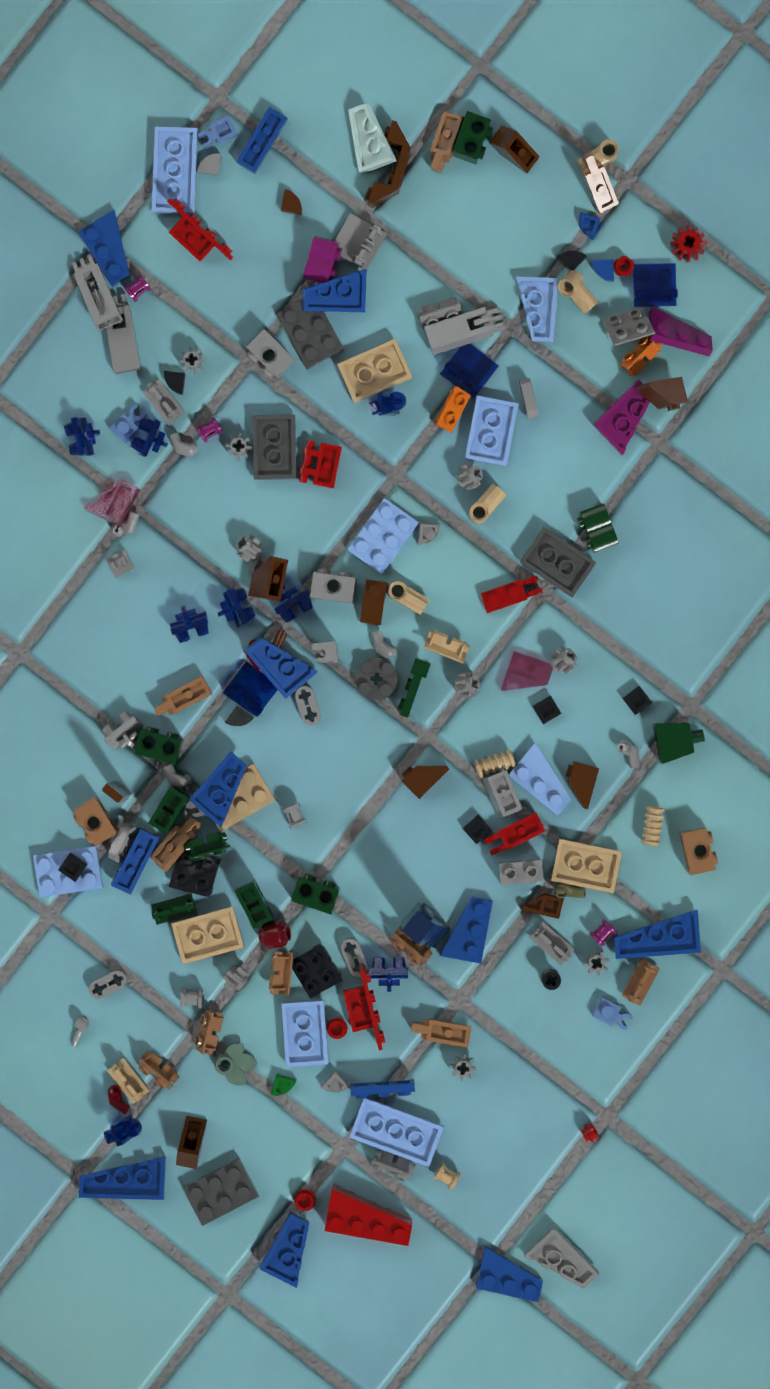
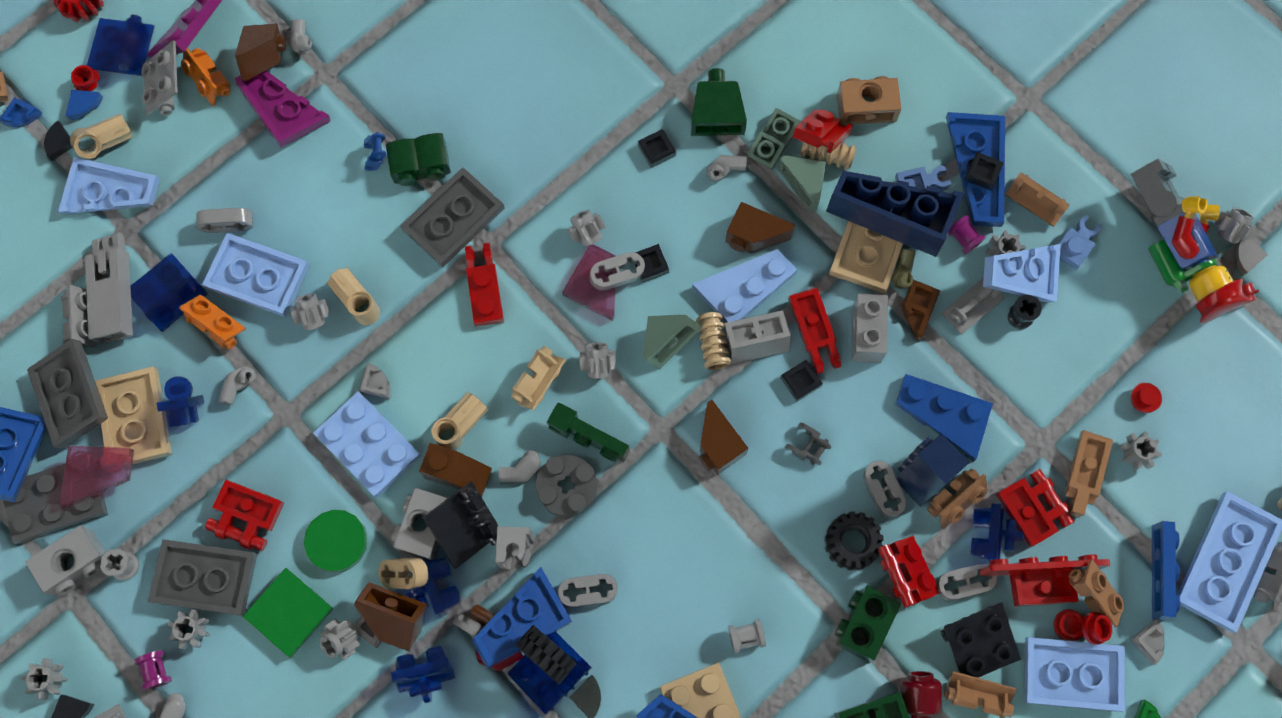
camera: 80 degrees left, 15 degrees down
(258, 687) = (545, 654): none -> black tyre
(261, 508) = (288, 612): none -> green tile
(272, 629) = (467, 624): none -> light grey tile
(274, 397) = (110, 564): none -> light grey bush
(293, 581) = (403, 567): none -> tan beam
(313, 529) = (335, 541): none -> green tile
(332, 357) = (93, 471): none -> clear pink wing
(336, 615) = (462, 525): none -> black hinge
(336, 1044) = (1096, 628): none -> red plate
(353, 917) = (908, 571): none -> red plate
(359, 1044) = (1103, 596): none -> medium nougat hinge
(369, 865) = (858, 522): none -> black tyre
(383, 323) = (67, 393): none -> dark grey plate
(407, 994) = (1030, 516): none -> red plate
(411, 899) = (890, 485): none -> light grey beam
(412, 435) = (234, 382): none -> light grey arm
(437, 843) = (814, 438): none -> dark grey piece
(490, 730) = (666, 336): none -> sand green slope
(502, 1069) = (1146, 397): none -> red plate
(529, 690) = (614, 264): none -> light grey beam
(578, 977) = (1025, 272): none -> light blue wing
(599, 497) = (377, 155): none -> blue piece
(607, 882) = (896, 210): none -> dark blue wedge
(619, 1087) = (1186, 247): none -> piece
(621, 1136) = (1248, 255): none -> light grey tile
(627, 813) = (805, 178): none -> sand green slope
(638, 893) = (919, 178): none -> medium blue plate
(640, 1124) = (1235, 225): none -> light grey gear
(652, 940) = (984, 171): none -> black tile
(657, 785) = (773, 139): none -> sand green slope
(665, 819) = (822, 129): none -> red plate
(683, 416) = (299, 41): none -> light grey arm

